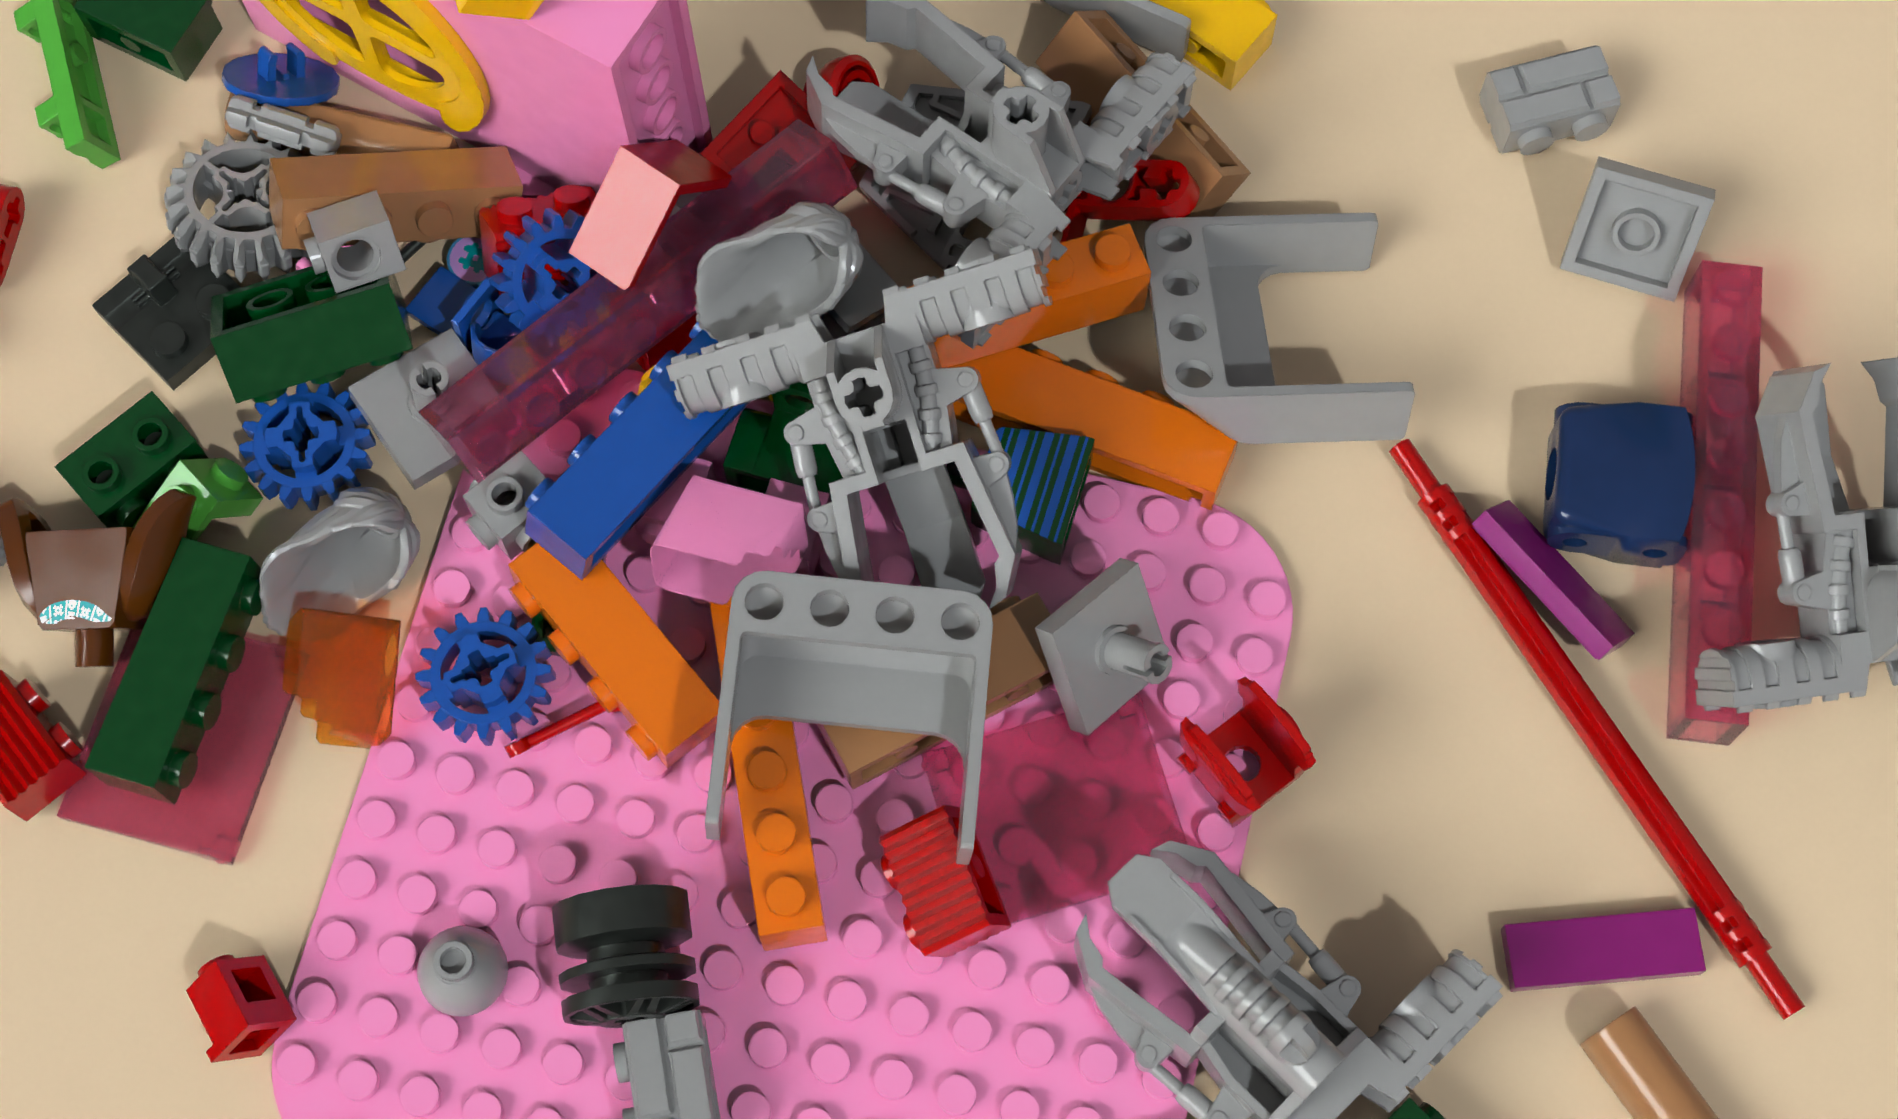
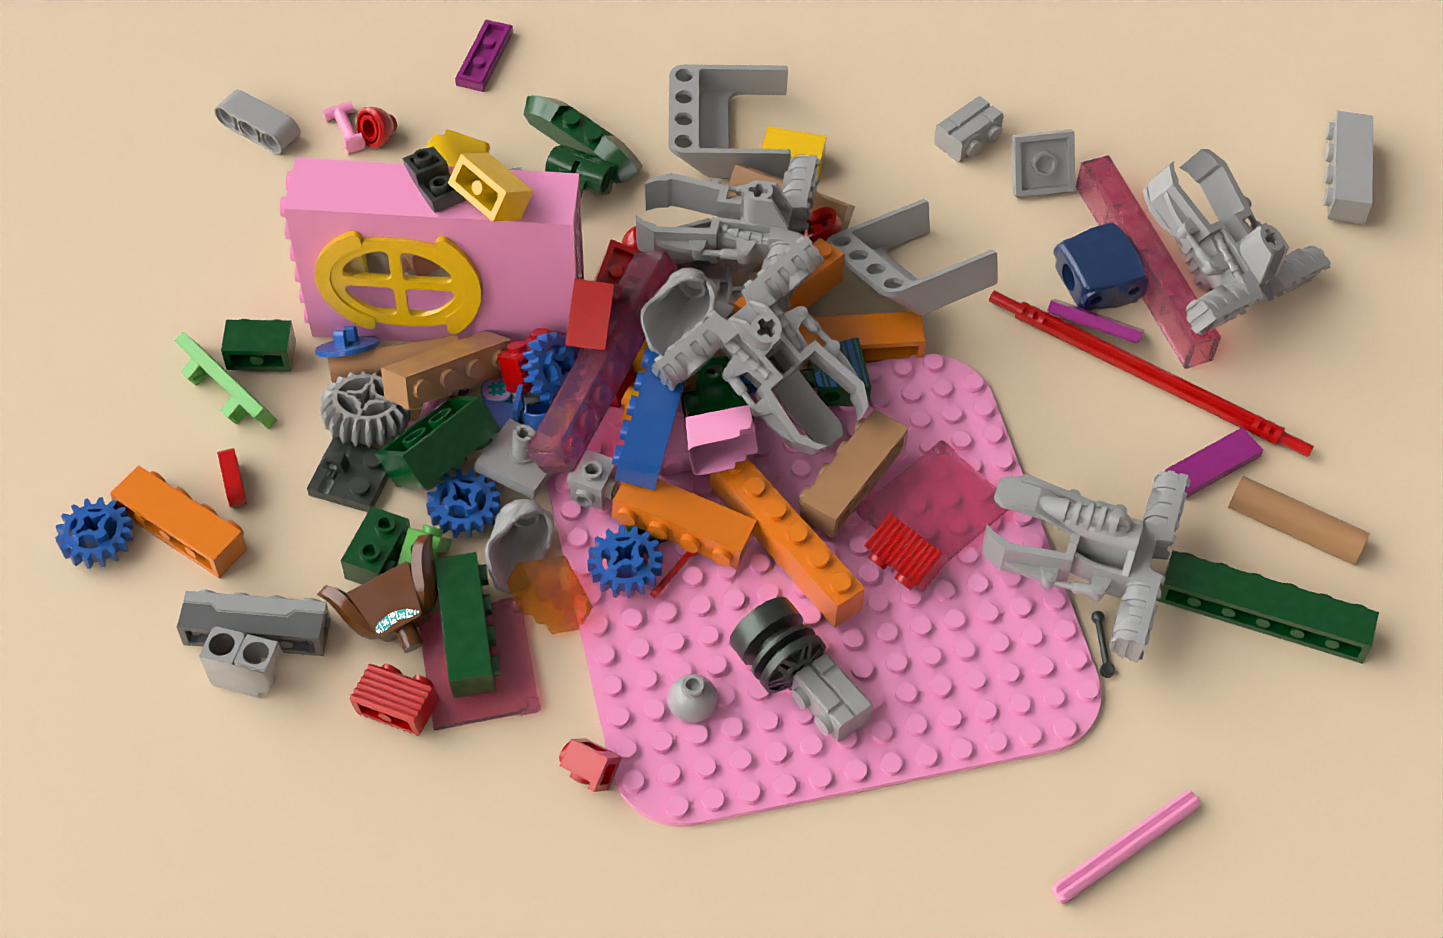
camera: 30 degrees left, 15 degrees down
(282, 126) = (365, 361): light grey axle -> none
(366, 261) = (450, 385): light grey brick -> none
(856, 661) = (822, 459): light grey windscreen -> none
(1104, 646) = (921, 418): light grey tile -> none
(1258, 728) = (1013, 437): red piece -> none

